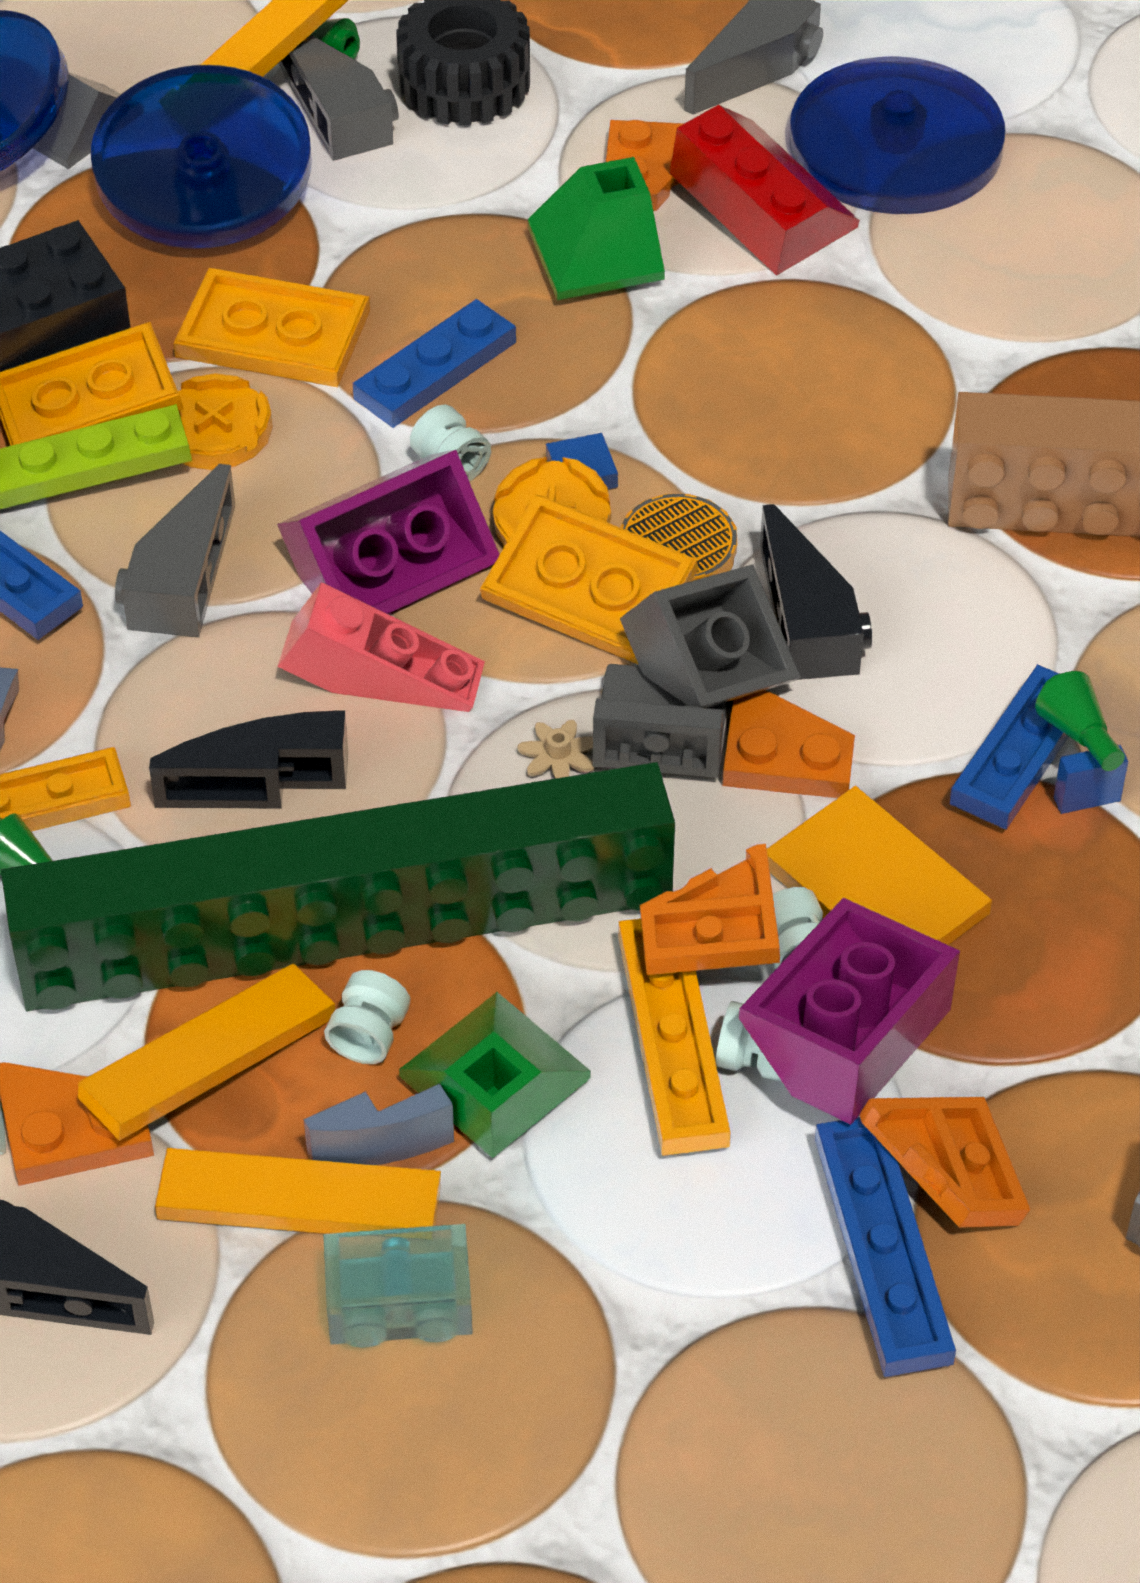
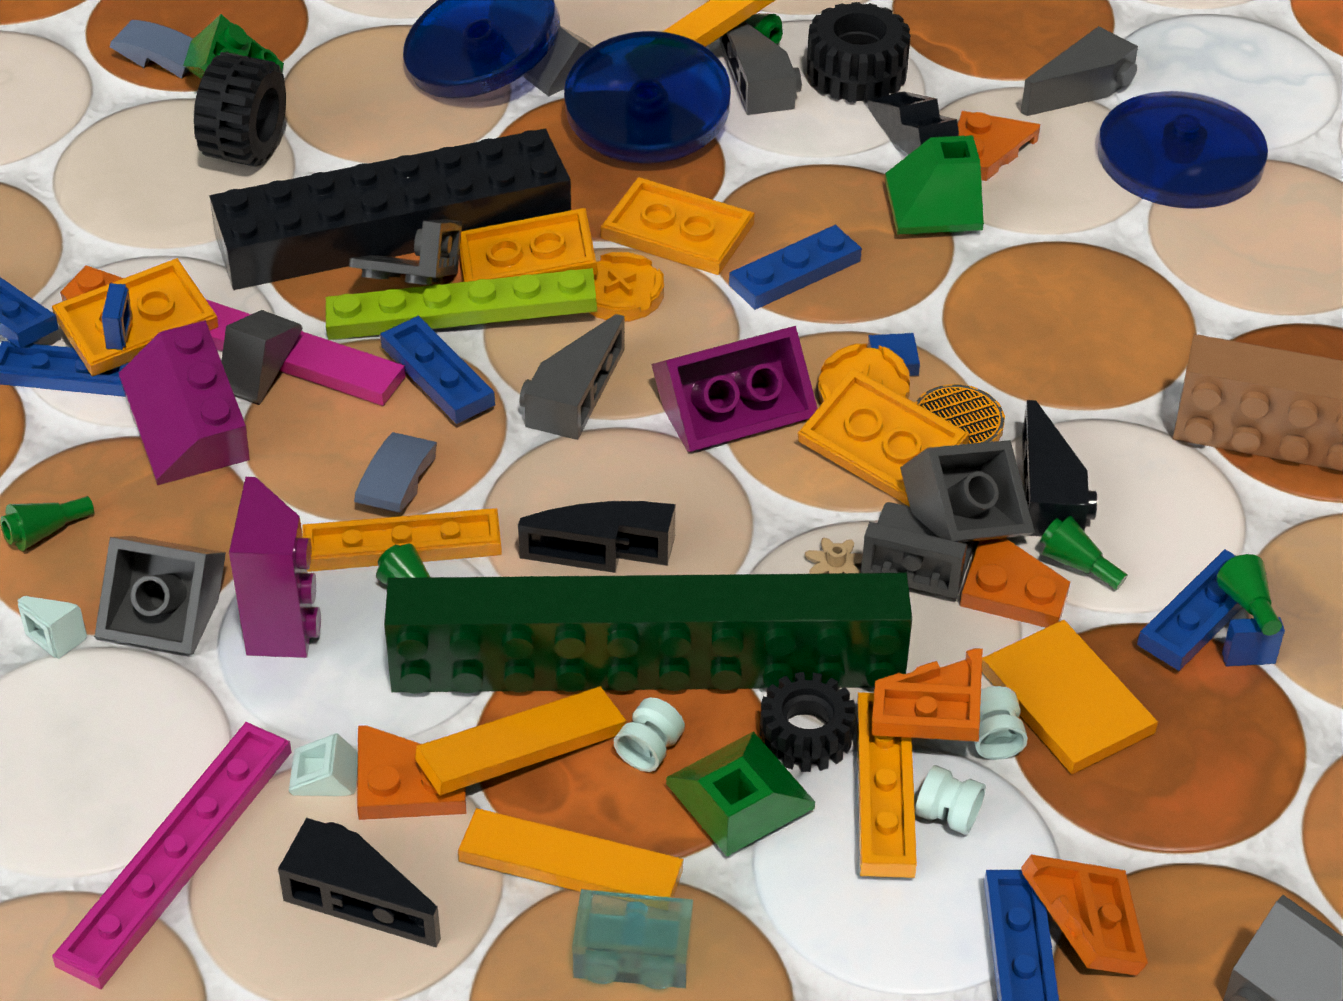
camera: 10 degrees right, 5 degrees down
(363, 1135) = (648, 825): sand blue slope -> none
(376, 656) = (706, 469): coral slope -> none
(433, 436) = (793, 311): light aqua wheel -> none
(549, 141) = (911, 119): none -> black slope
(567, 938) = (814, 699): none -> black tyre
(757, 189) = (1065, 173): red slope -> none
(850, 689) = (1073, 547): none -> green cone
(850, 1007) = (1028, 783): magenta slope -> none

